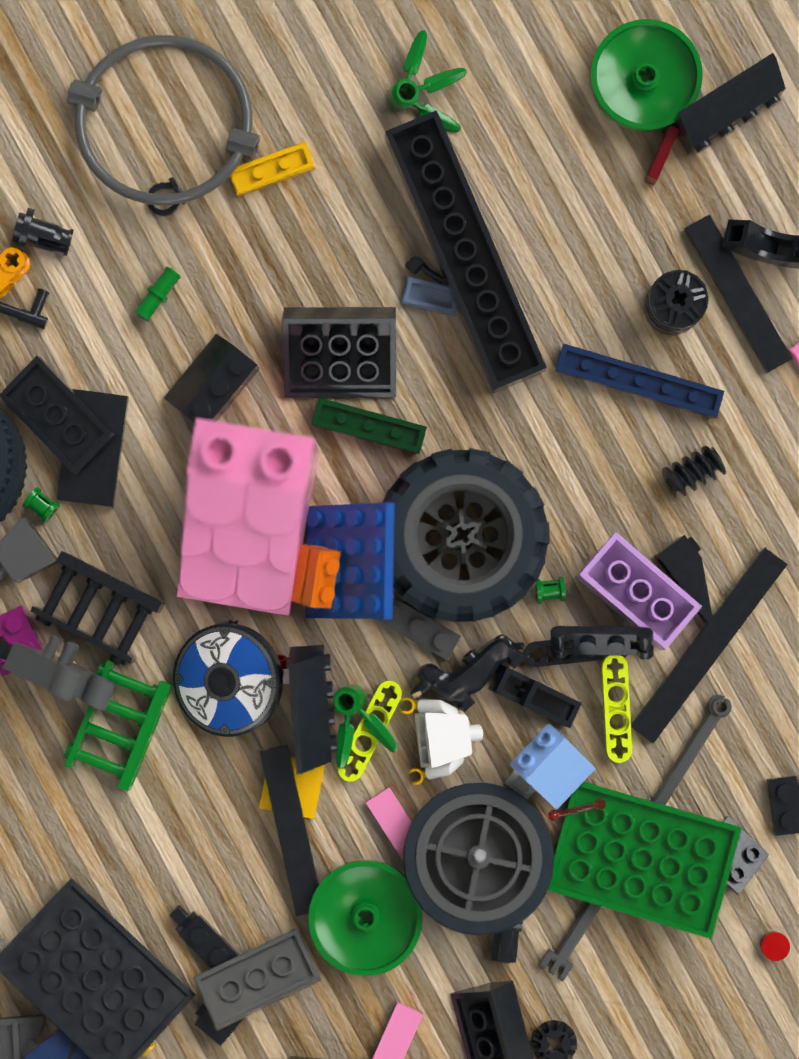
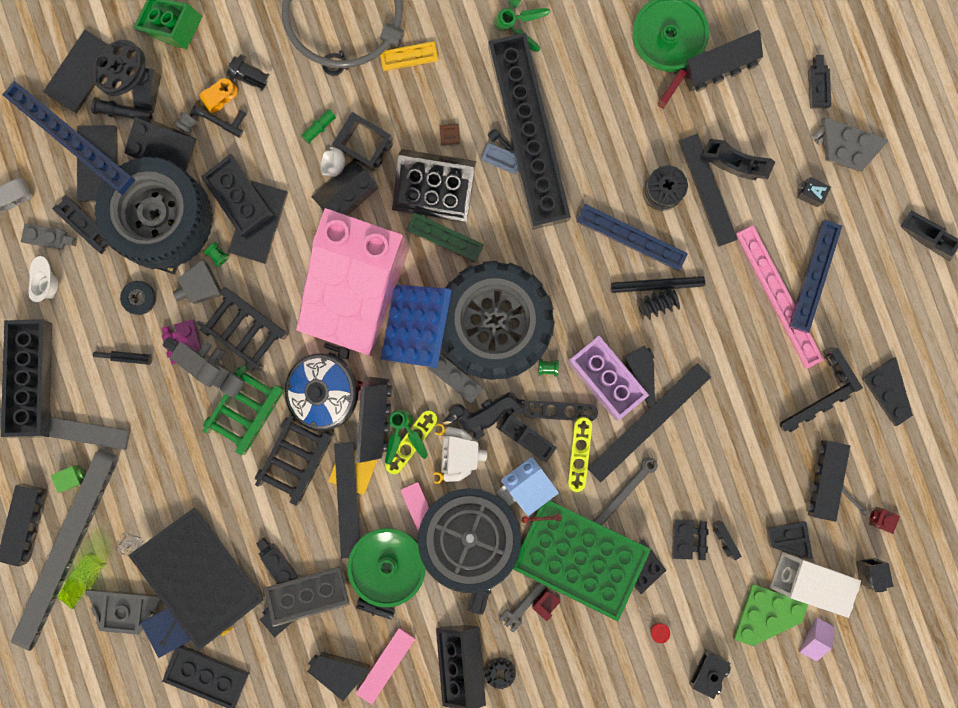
camera: 15 degrees right, 0 degrees up
(187, 343) = (332, 162): none -> white hair
(199, 298) = (347, 131): none -> black window
(230, 778) = (303, 475): none -> black fence
(249, 617) = (342, 352): none -> black hand
(315, 576) = (391, 331): orange brick -> none
(350, 274) = (449, 134): none -> reddish brown tile
(371, 983) = (385, 612): none -> black axle
(602, 641) = (577, 407): black plate -> none
(603, 932) = (545, 604): none -> dark red panel
(688, 442) = (658, 284): none -> black axle

